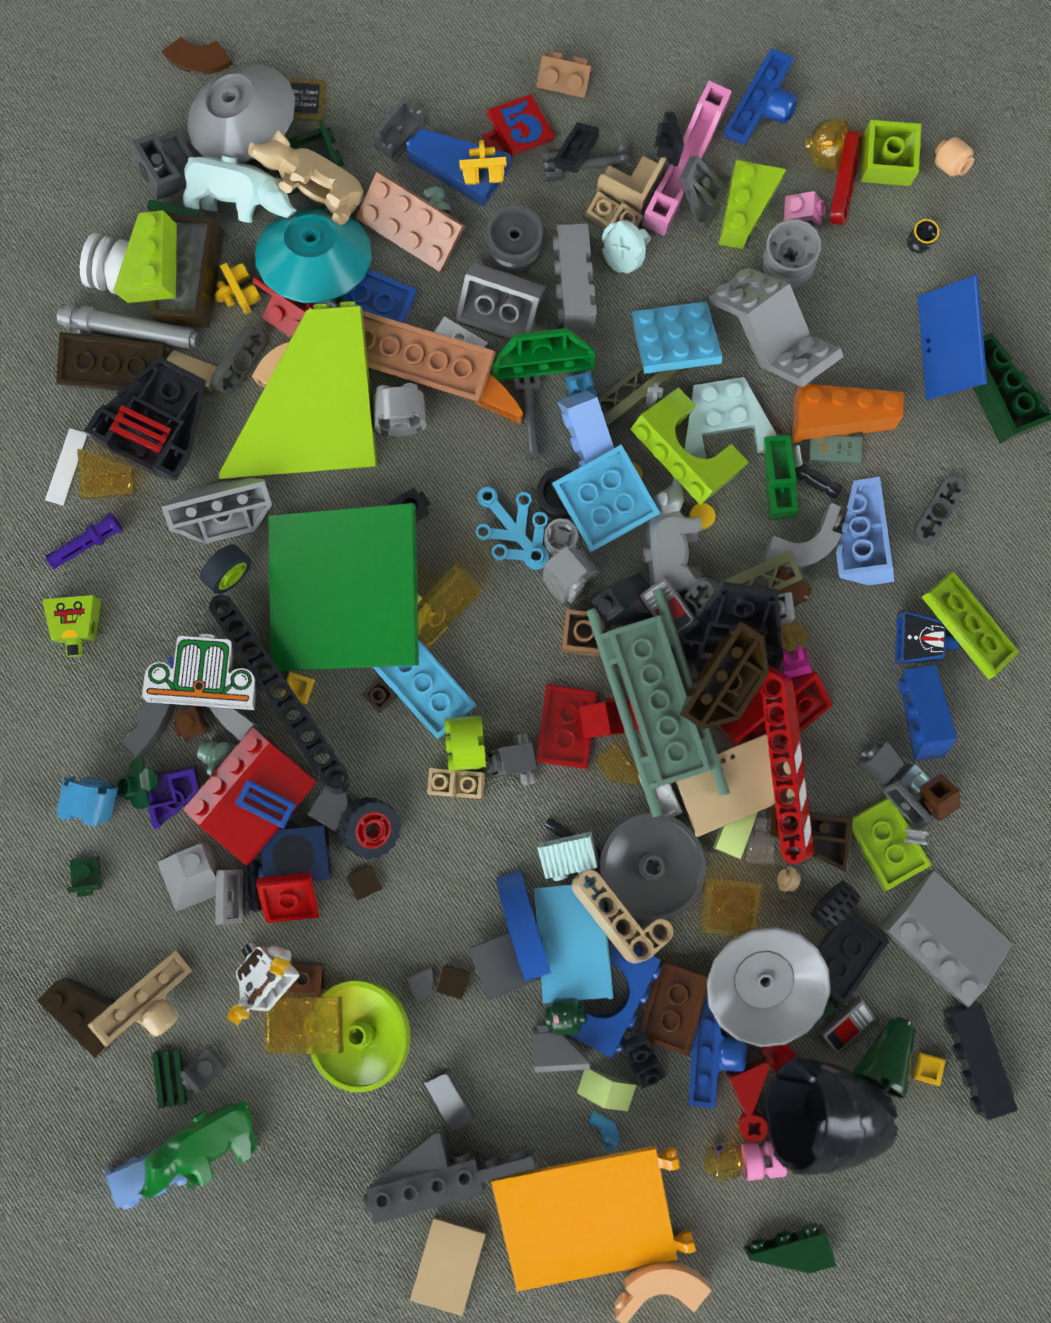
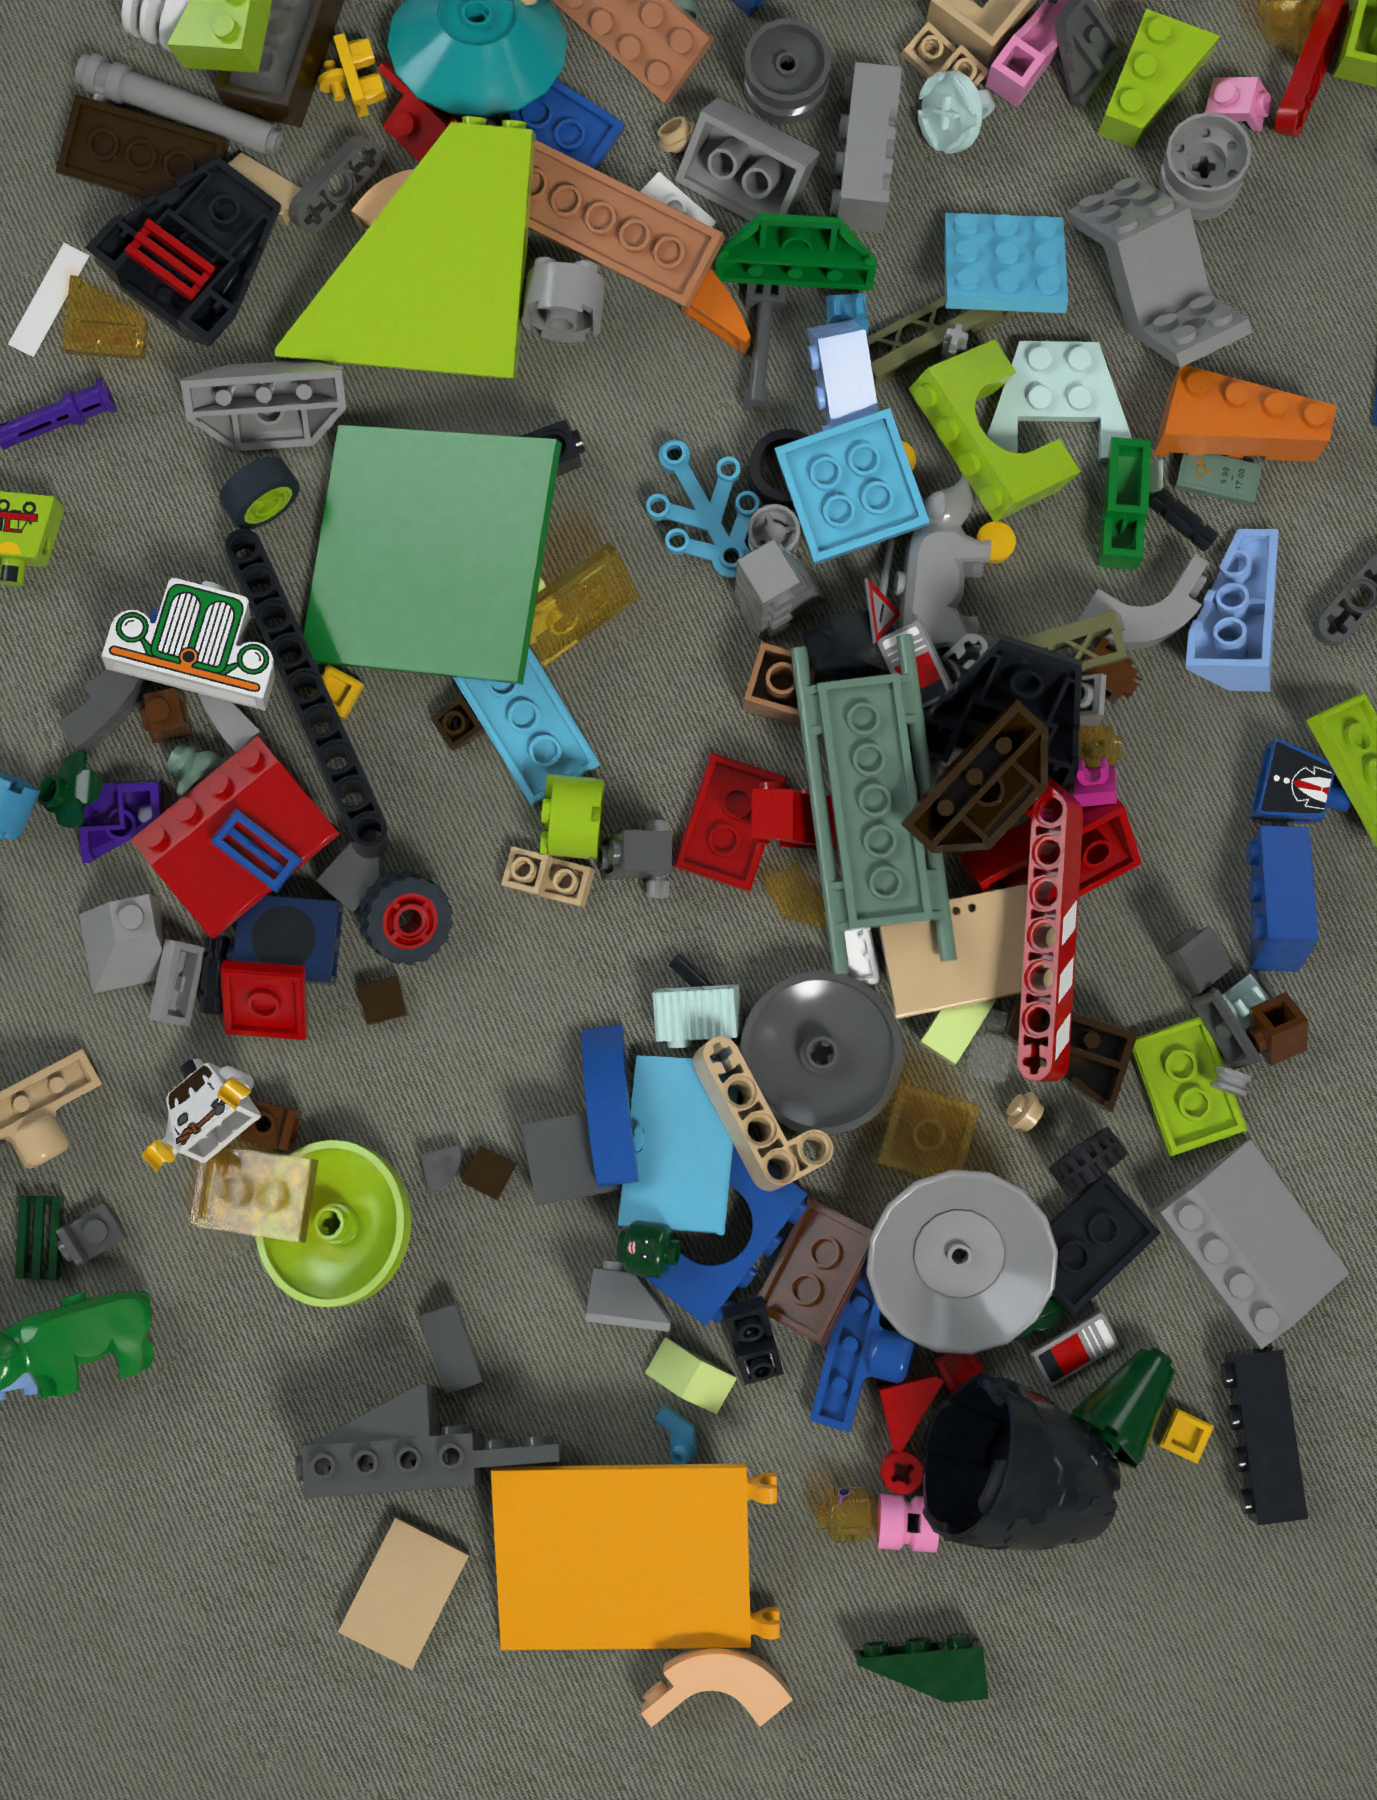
camera: 15 degrees right, 0 degrees up
(451, 291) = (675, 134): none -> tan plate
(638, 573) = (881, 610): none -> light grey piece

